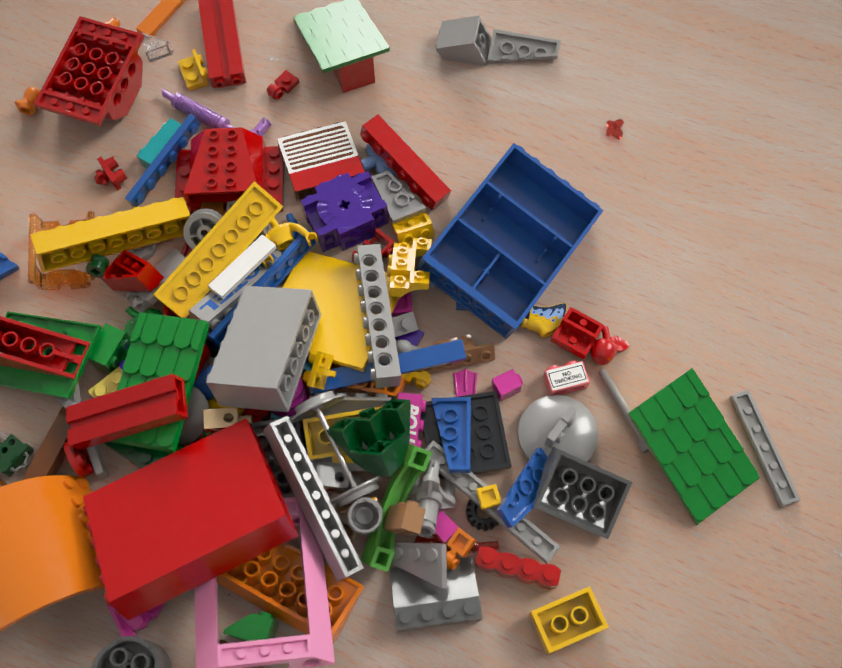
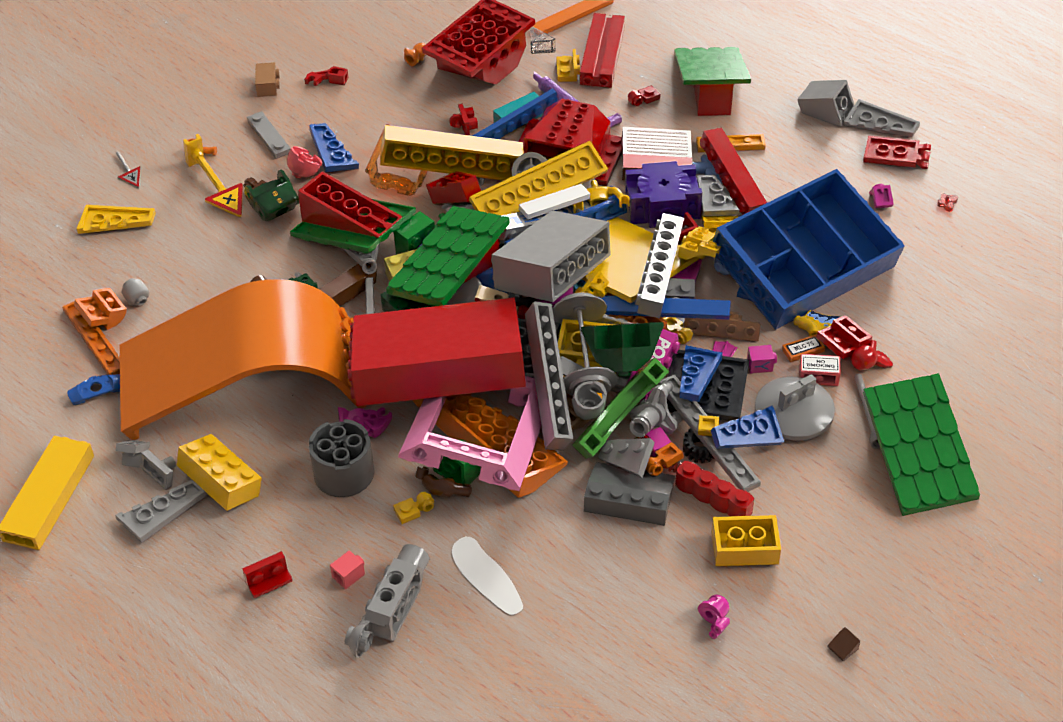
camera: 20 degrees right, 20 degrees down
(79, 460) = (357, 304): red tile -> none
(97, 266) = (428, 174): dark green wheel -> none
(126, 412) = (414, 266): red brick -> none
(393, 116) = (742, 142): none -> light orange tile
(404, 518) = (624, 413): medium nougat brick -> none
(540, 355) = (807, 345): none -> tile
(548, 82) = (897, 152): none -> red tile
(554, 142) = (882, 196): none -> dark pink bracket
(581, 493) = (798, 448): dark grey slope -> none
(764, 449) = (994, 477): light grey tile -> none

